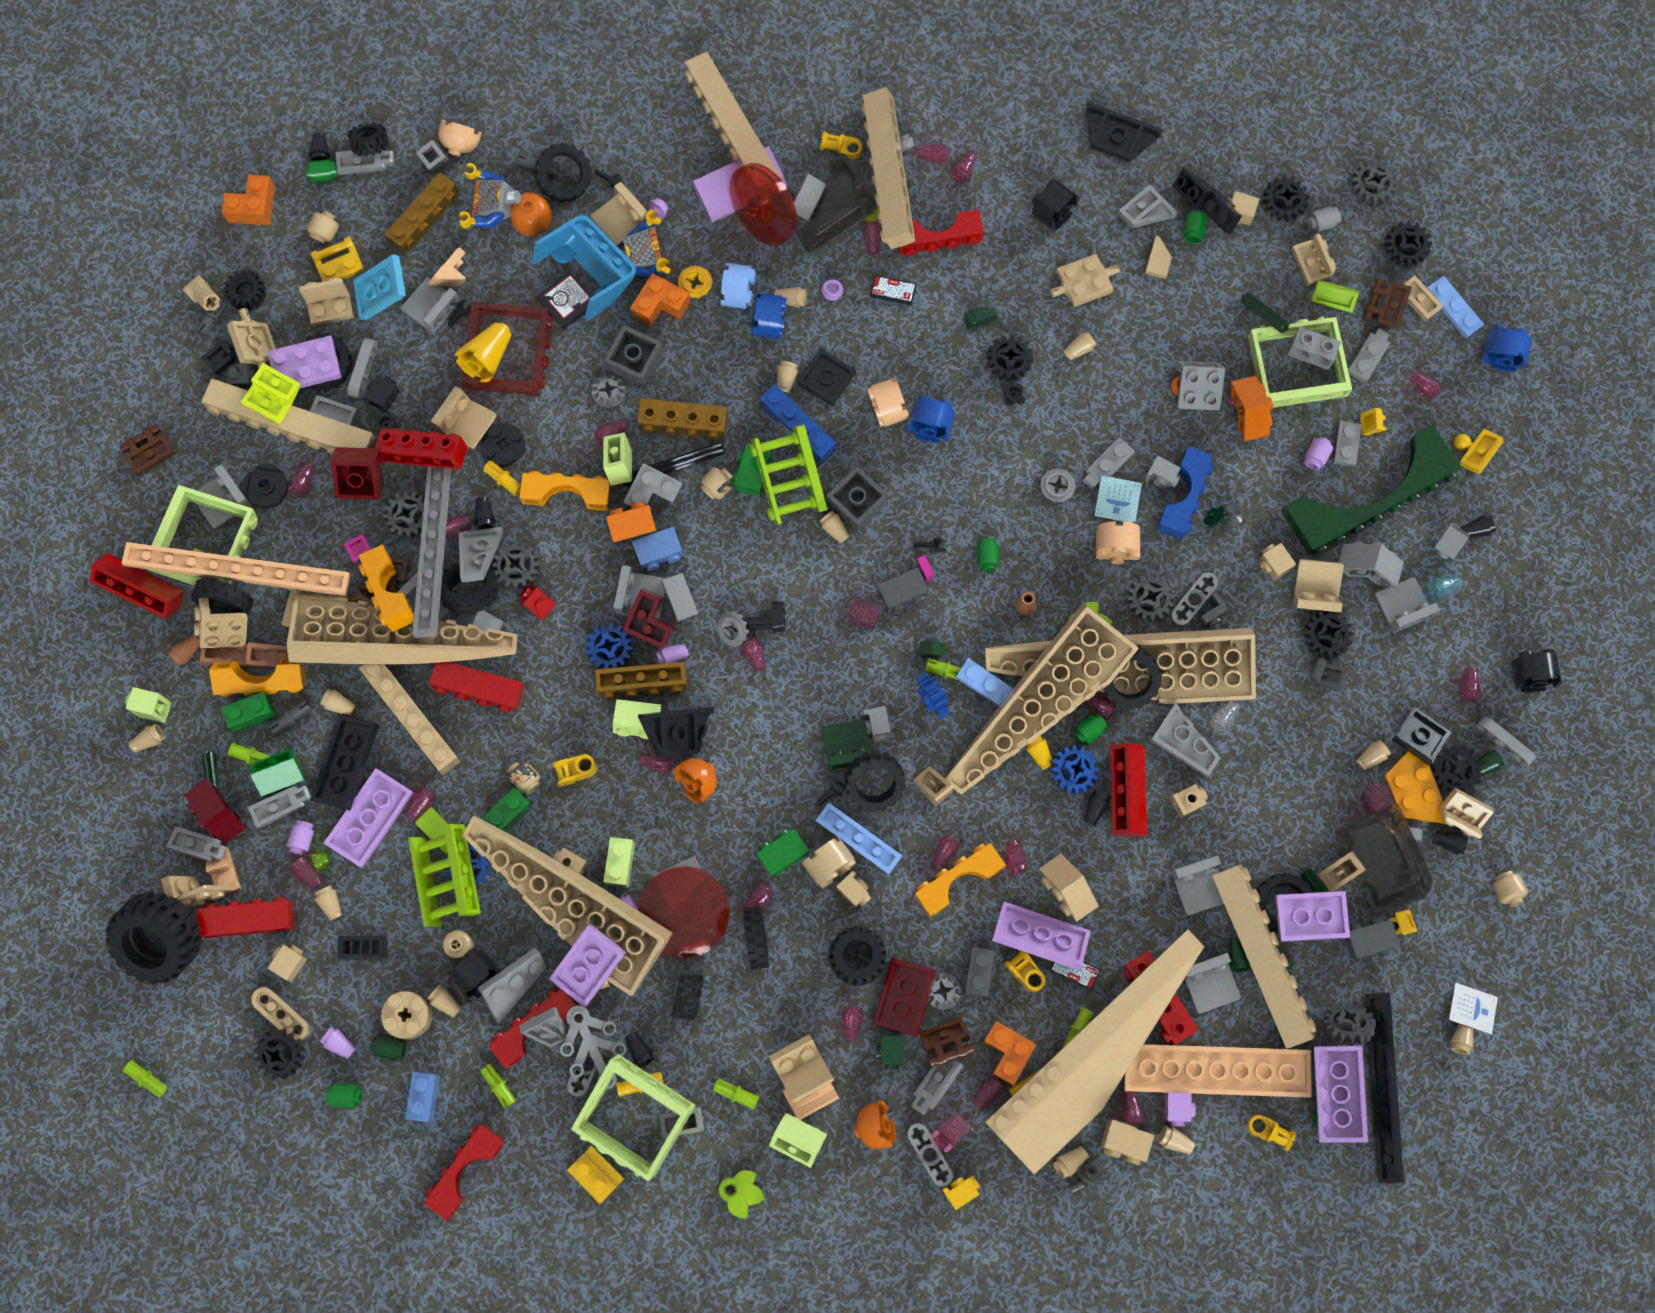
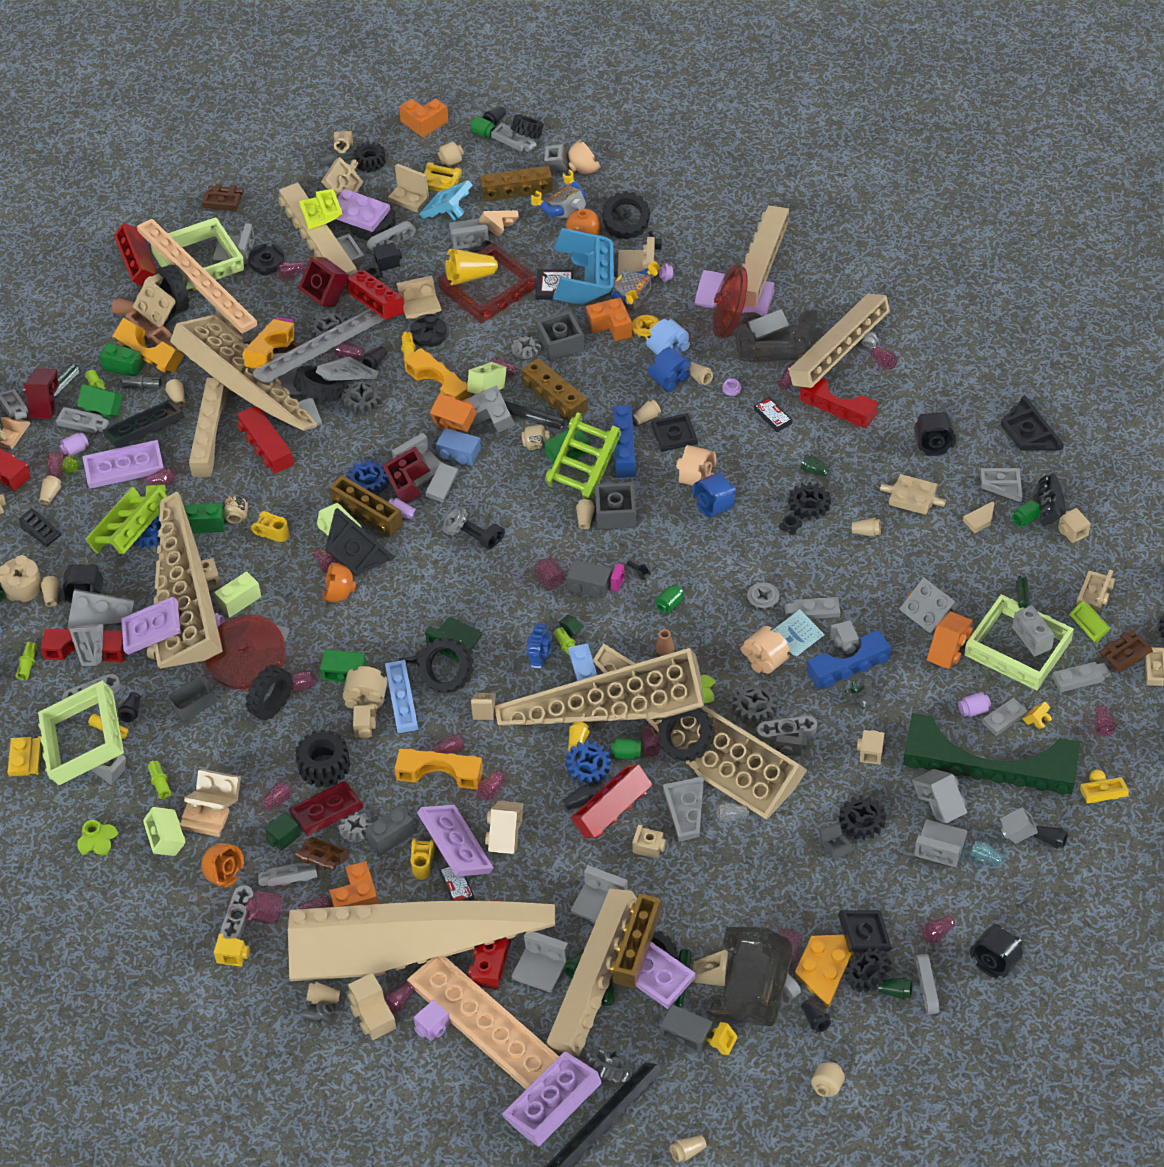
camera: 45 degrees right, 25 degrees down
(147, 738) = (53, 335): tan cone -> none
(148, 705) = (71, 315): yellowish green brick -> none
(219, 356) = (314, 178): black bracket -> none
(462, 938) = (94, 558): tan head -> none
(536, 601) = (352, 424): red bracket -> none
(589, 1041) = (104, 673): light grey plant -> none
(754, 654) = (453, 545): clear pink cone -> none
(840, 144) = (827, 311): yellow connector -> none
(877, 723) = (488, 640): light grey brick -> none
(963, 169) = (896, 378): clear pink cone -> none
(1175, 1140) = (407, 1040): tan cone -> none
(1272, 1131) = (480, 1092): yellow connector -> none
(1283, 200) = (1113, 540): black gear -> none
(1288, 908) = (636, 941): none -> pearl gold brick
(1318, 585) = (886, 779): tan bracket -> none
(1324, 219) = (1130, 571): light grey brick -> none
(1373, 755) = (815, 917): tan cone -> none
(1465, 813) = (843, 1000): tan bracket -> none
(1473, 1008) = (716, 1136): white sticker -> none

